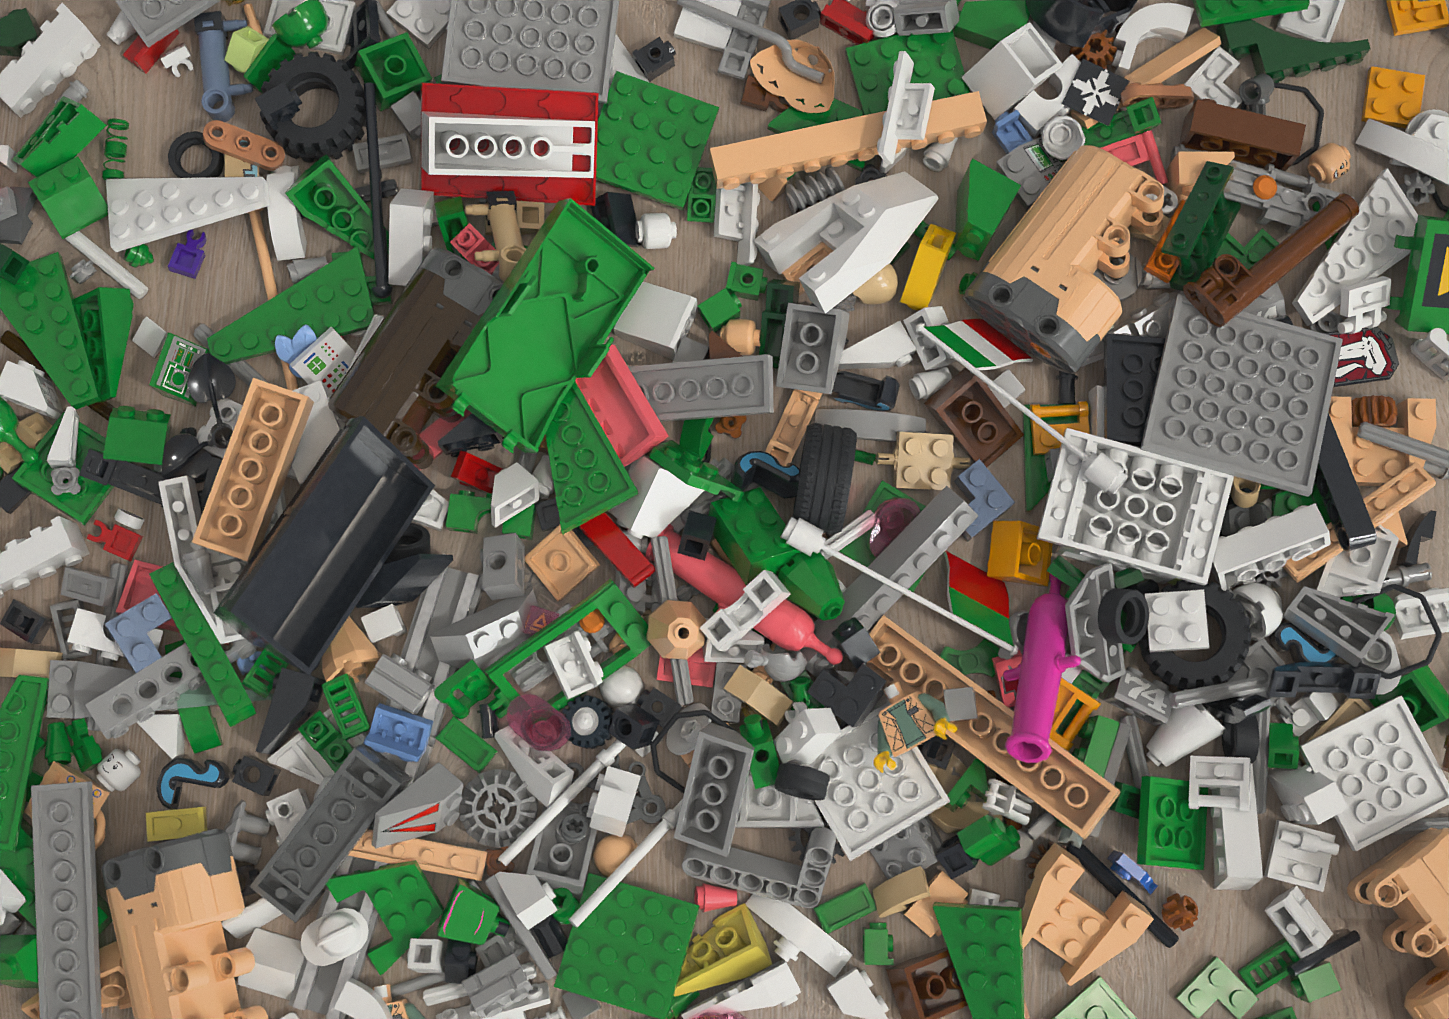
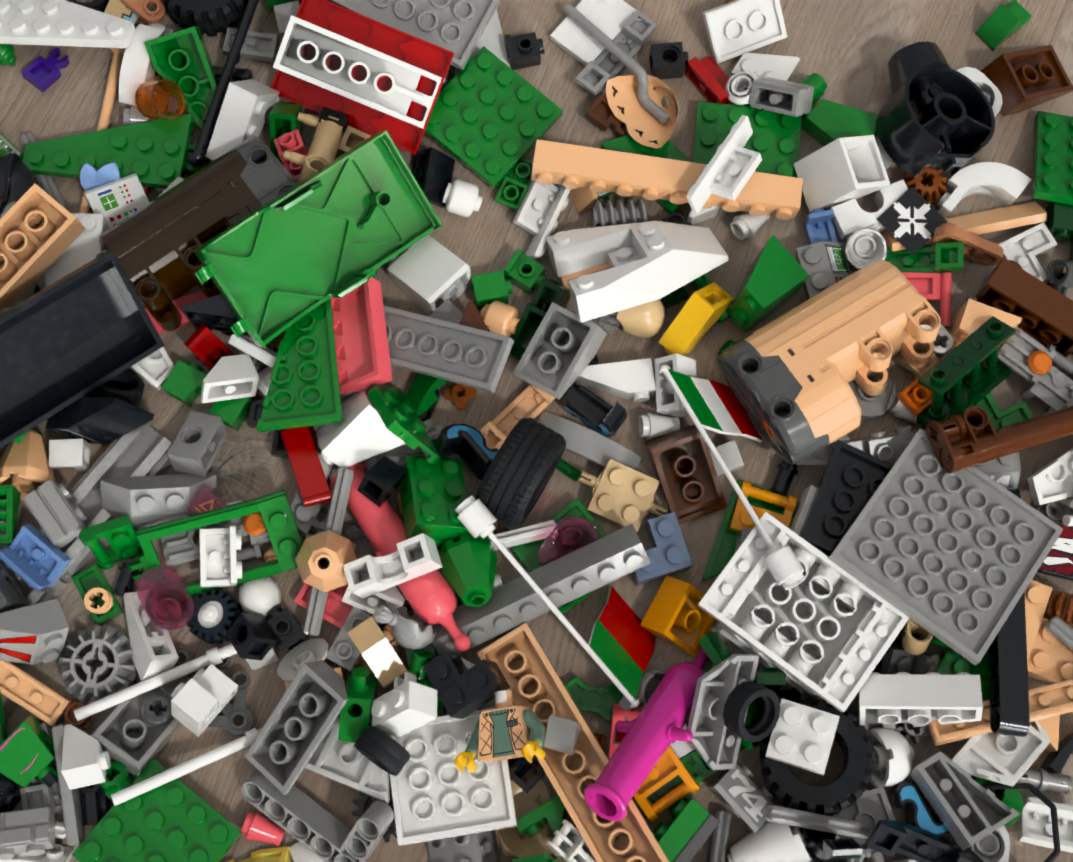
camera: 20 degrees right, 5 degrees down
(314, 248) = (153, 99): none -> clear orange helmet
(479, 743) = (90, 604): none -> light nougat bush
(539, 459) = (247, 345): none -> white tile
(561, 562) = (253, 461): light nougat tile -> none
(612, 852) = (186, 746): light nougat hair -> none
(671, 722) = (279, 651): black piece -> none
(855, 642) = (486, 636): black brick -> none

